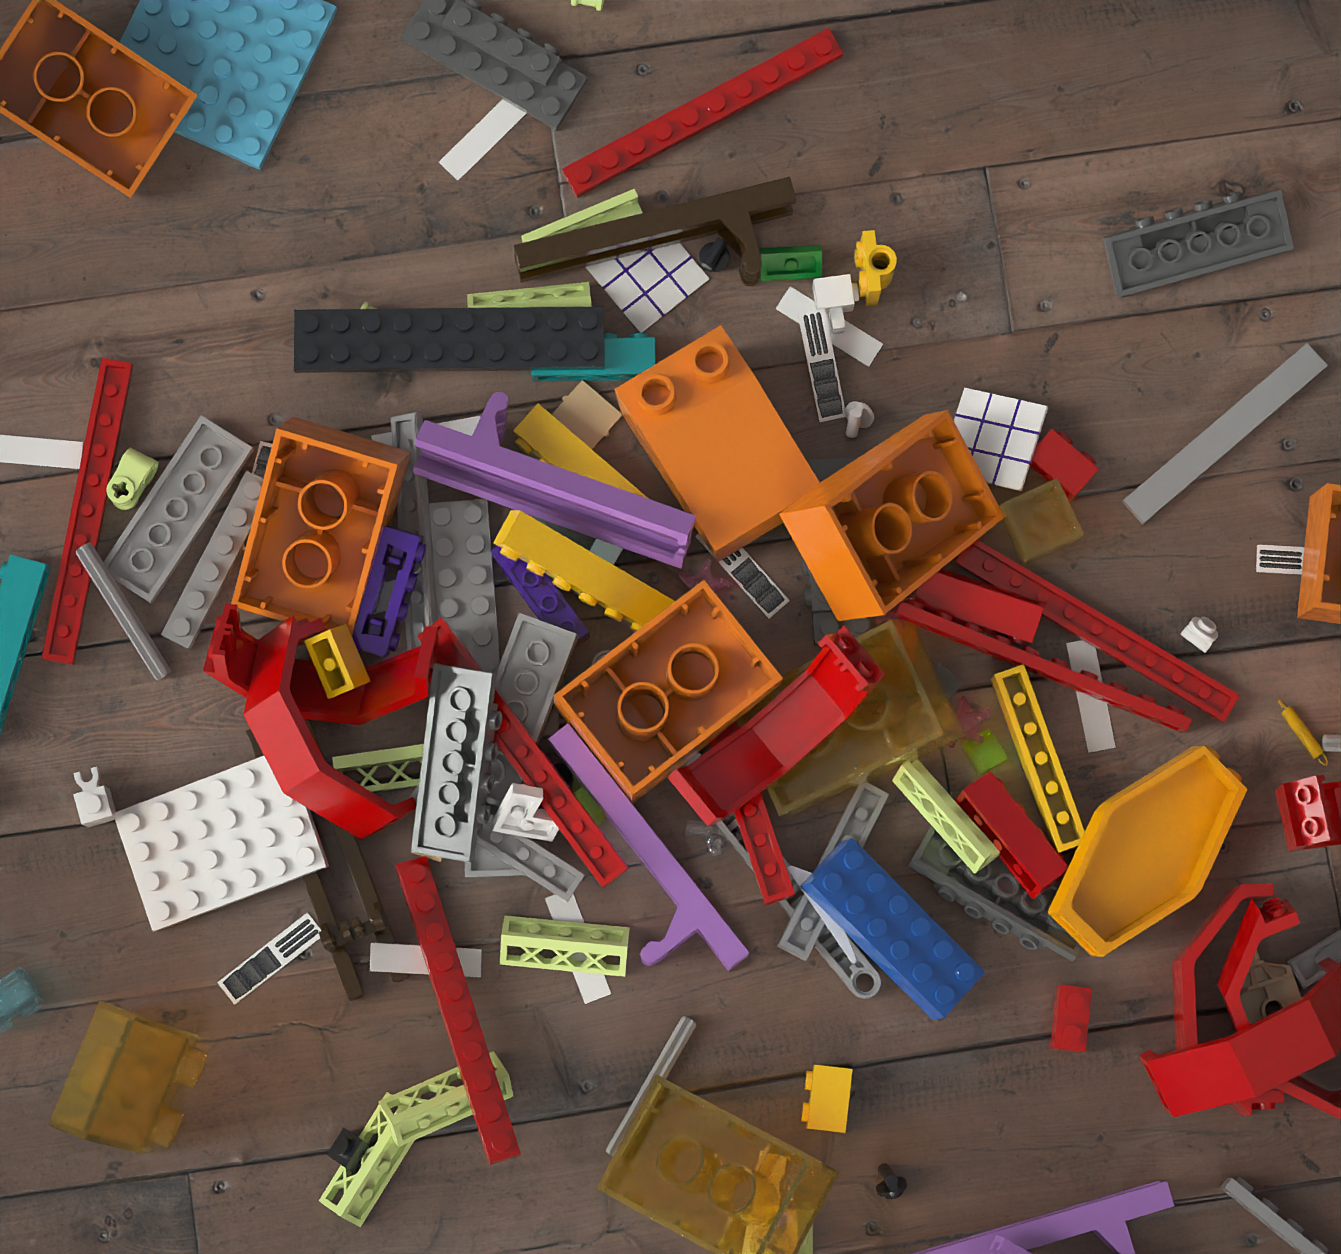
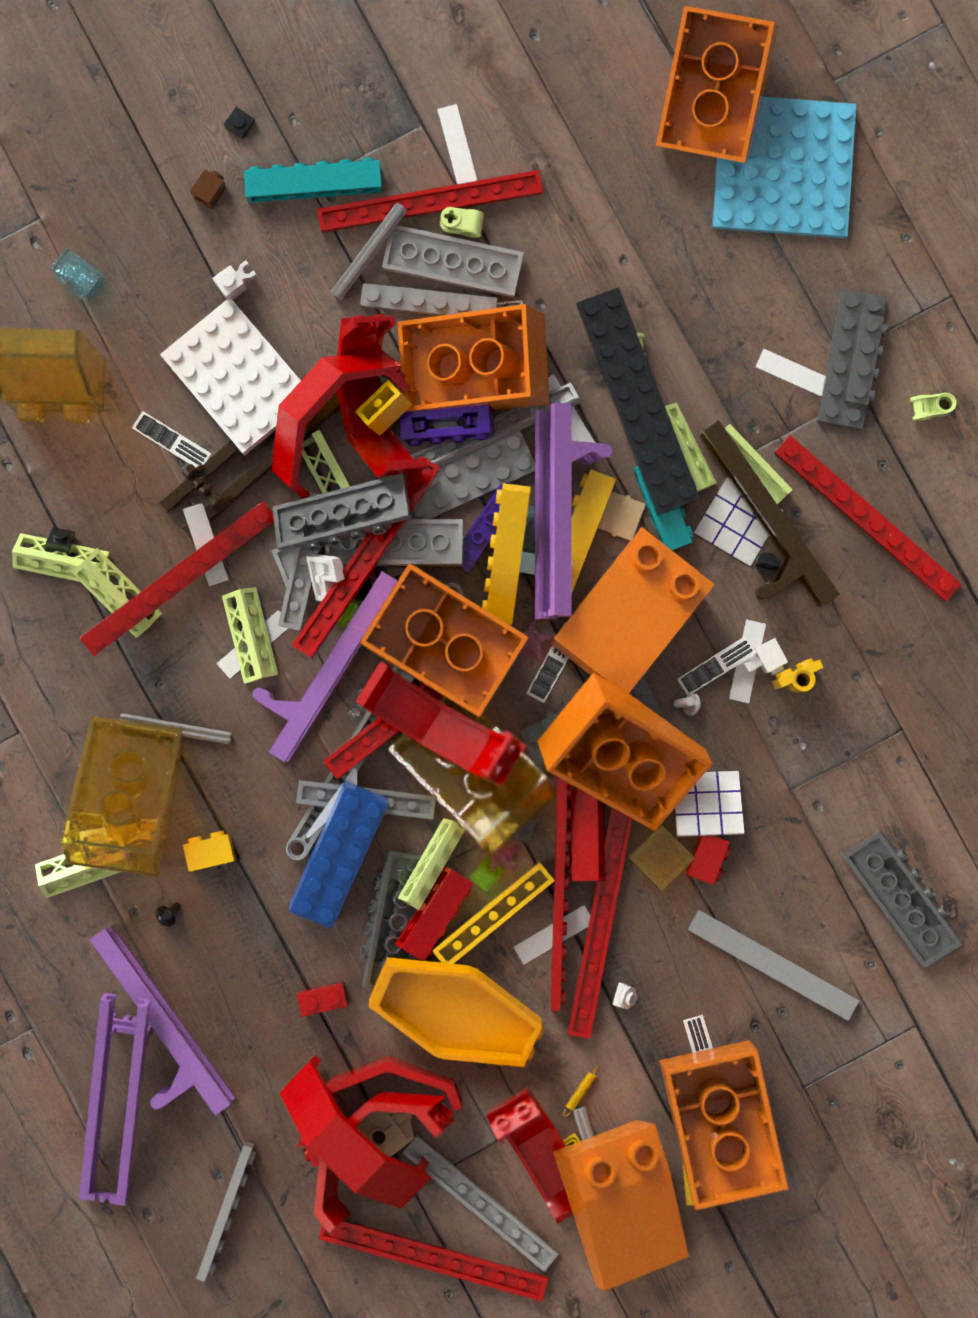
camera: 65 degrees right, 5 degrees up
(791, 262) = (781, 618): green plate -> none

